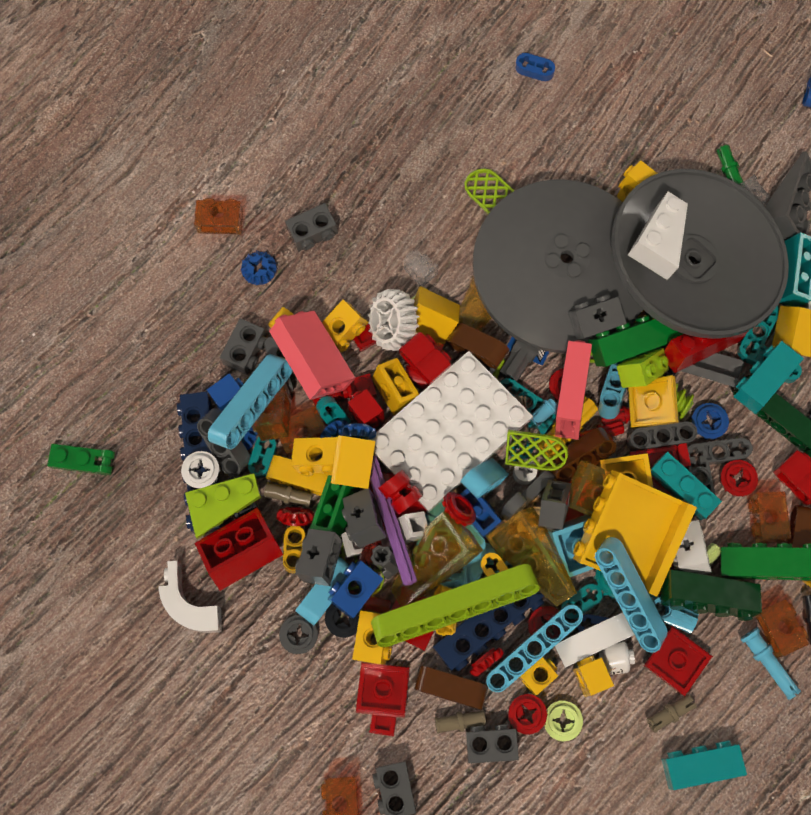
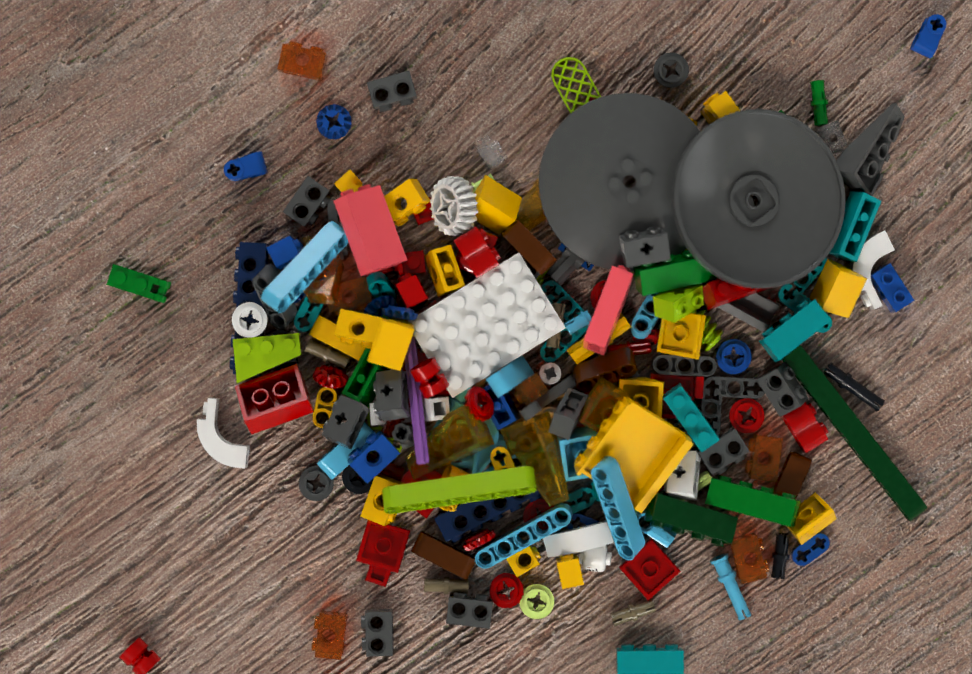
camera: 10 degrees right, 15 degrees up
(179, 323) = (250, 167): none -> blue piece
(507, 486) = (530, 389): none -> clear orange brick
(528, 435) = (567, 351): lime window -> none
(575, 155) = (681, 69): none -> dark grey gear
(662, 237) = (721, 183): white wedge -> none
(723, 517) = (721, 448): none -> dark grey brick
(766, 445) = (778, 391): none -> dark grey brick

